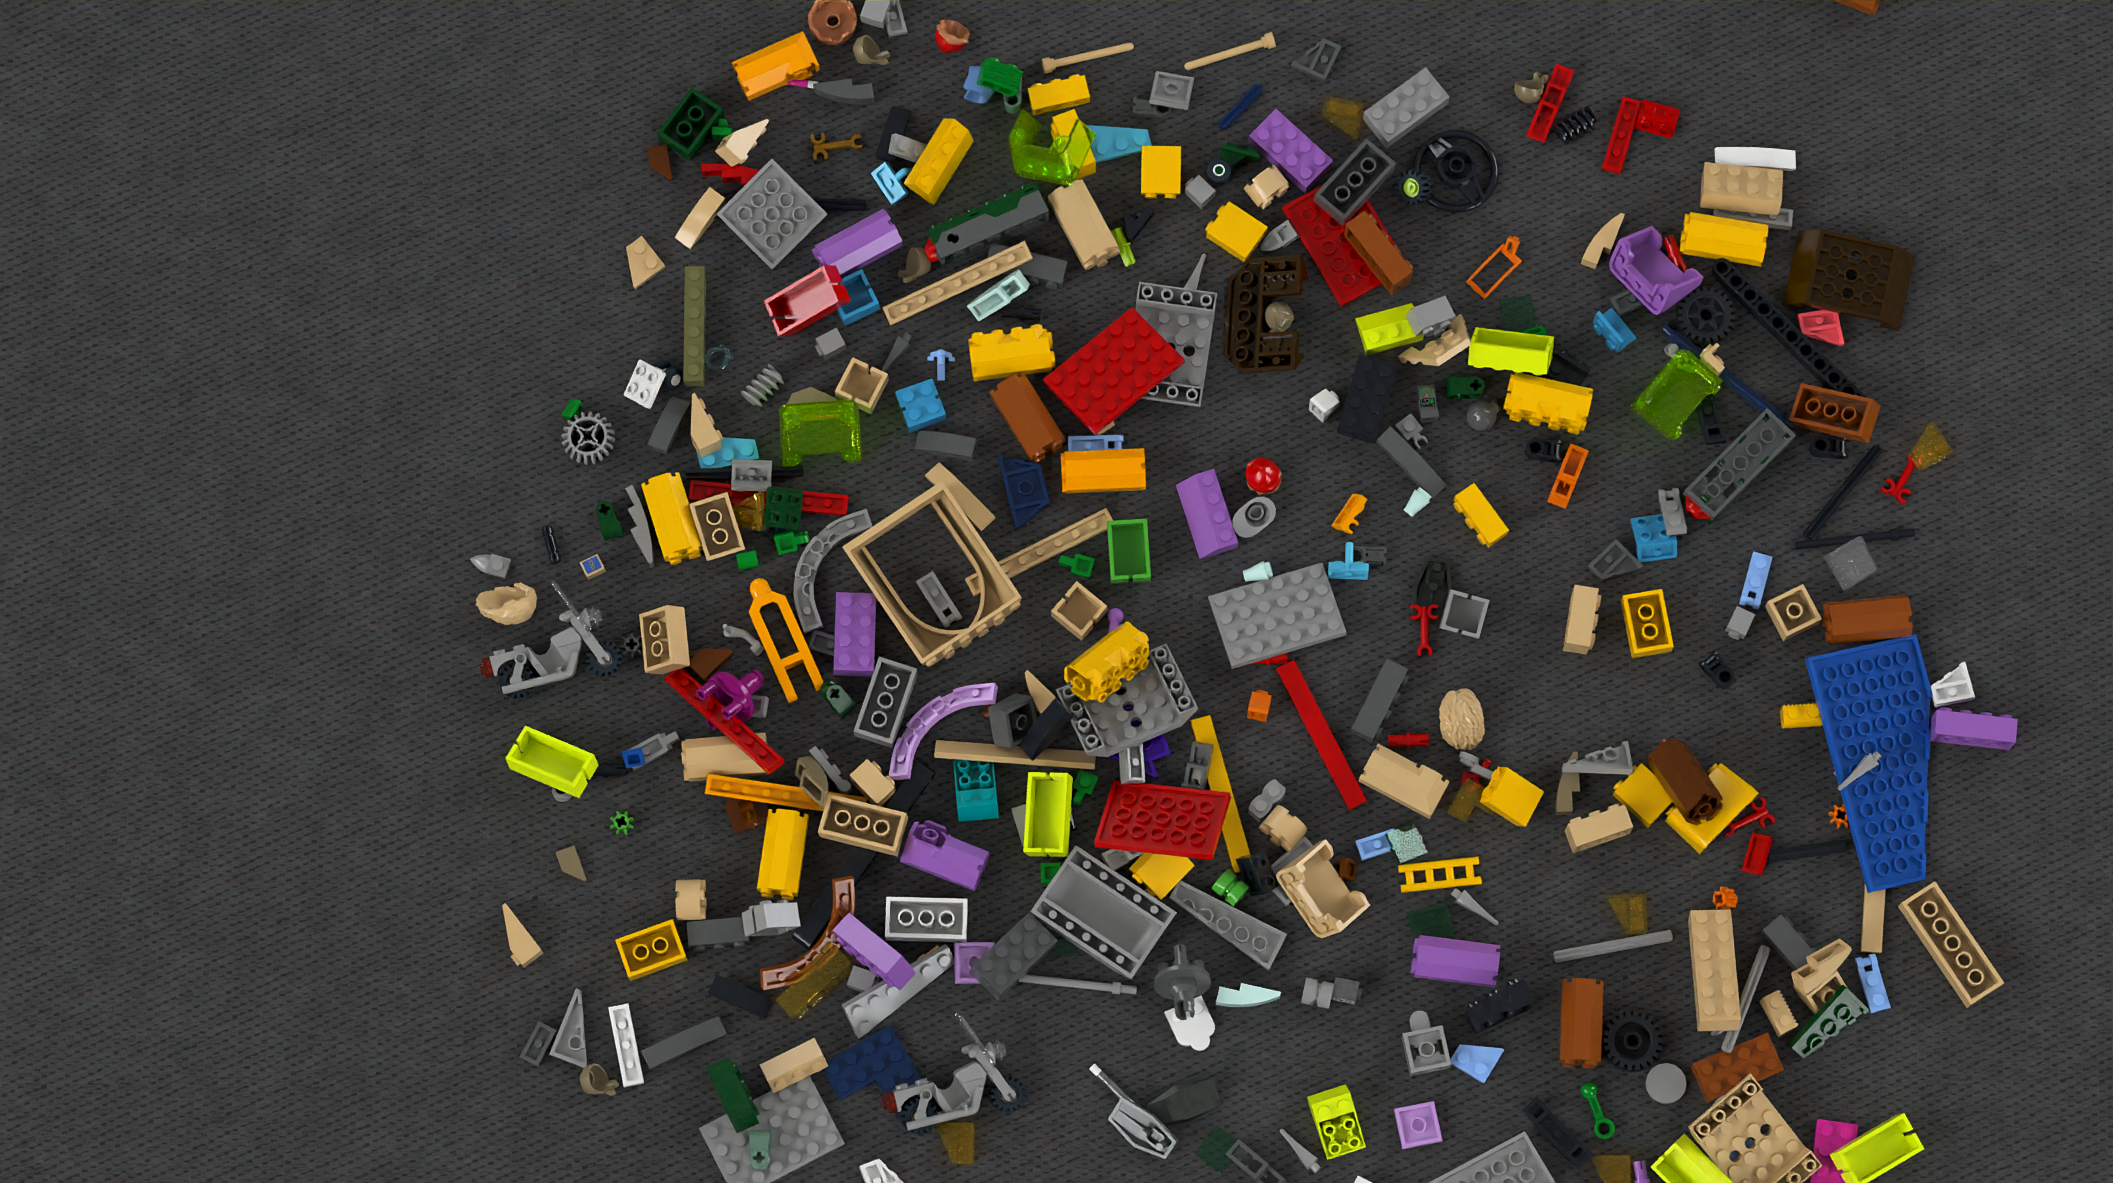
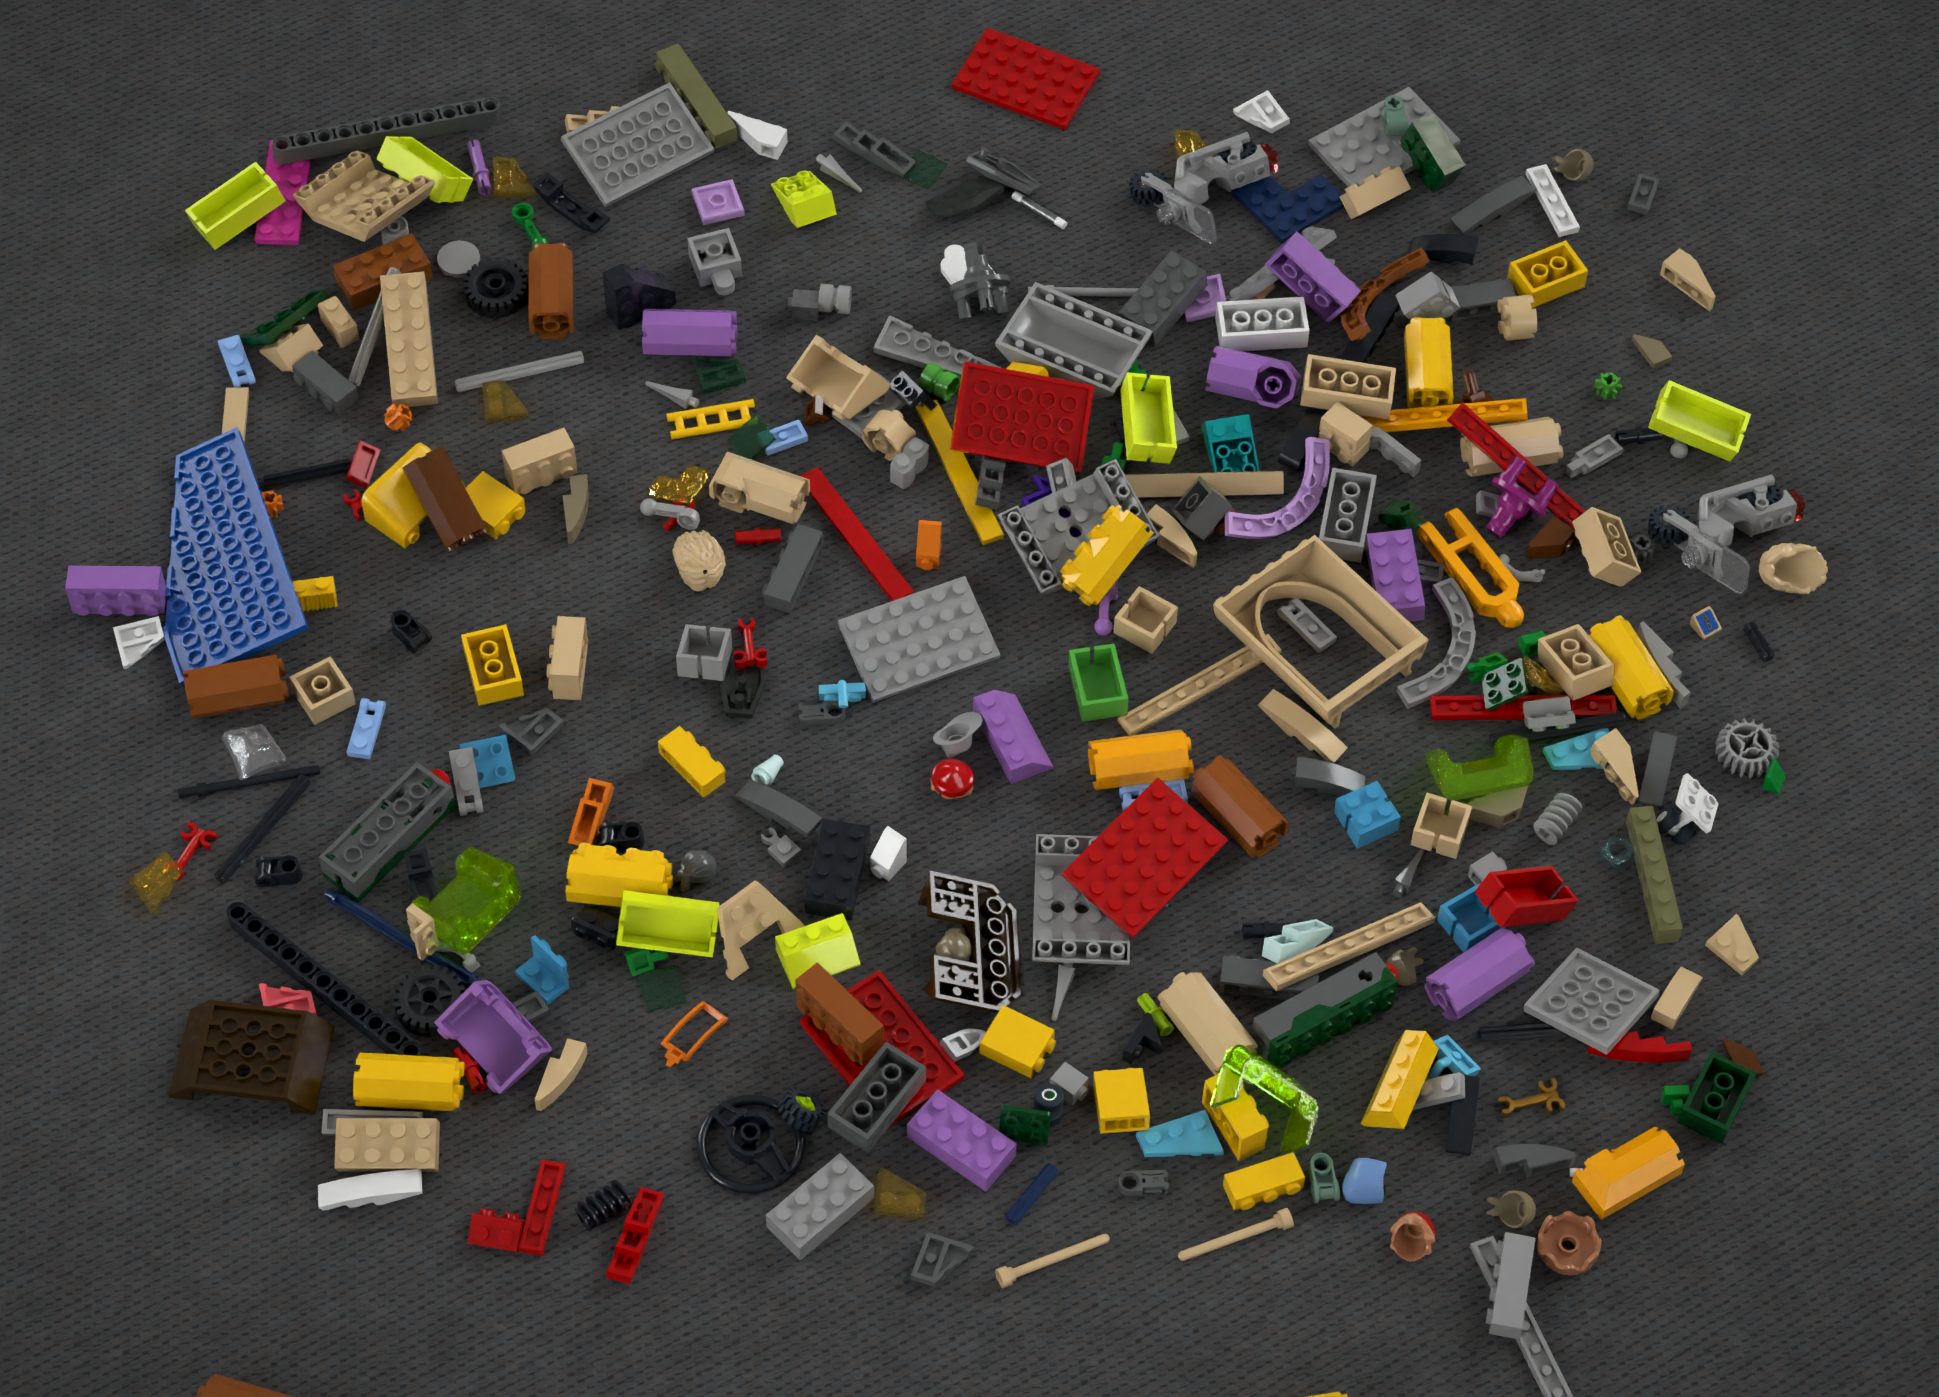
camera: 170 degrees right, 20 degrees down
(492, 564) = (1816, 617): light grey plate -> none
(570, 1040) = (1610, 201): light grey wing -> none
(609, 523) = (1700, 667): dark green piece -> none
(633, 757) = (1612, 439): blue slope -> none
(739, 143) = (1652, 1072): tan slope -> none
(809, 984) = (1373, 261): clear yellow windscreen -> none
(812, 779) = (1411, 427): dark tan slope -> none
(940, 354) = (1353, 875): light blue piece -> none
(999, 76) = (1342, 1174): green brick -> none
(1009, 354) = (1263, 873): yellow brick -> none
(1024, 488) = (1229, 737): dark blue wing -> none
(1045, 729) = (1162, 492): black slope -> none
(1079, 566) = (1151, 672): green plate -> none
(1171, 90) = (1121, 1199): light grey plate -> none
(1246, 996) = (909, 291): light aqua slope -> none
(1258, 572) = (944, 683): light aqua cone -> none
(1266, 186) = (986, 1090): tan brick -> none
(1351, 509) = (846, 750): light orange plate -> none
(1427, 404) = (764, 870): leg -> none
(1431, 317) = (768, 950): light grey brick -> none
(1462, 387) = (719, 891): dark green piece -> none
(1476, 1060) = (663, 260): light blue wing -> none
(1511, 796) = (638, 483): yellow brick -> none
(1531, 90) = (662, 1246): dark tan piece -> none
(1606, 761) = (530, 526): light grey wing -> none
(1739, 623) = (384, 679): light grey brick -> none
(1820, 966) = (292, 352): tan slope -> none
(1834, 413) = (271, 889): dark orange brick -> none
(1865, 765) = (240, 535): light grey piece -> none
(1951, 944) = (150, 394): tan brick -> none

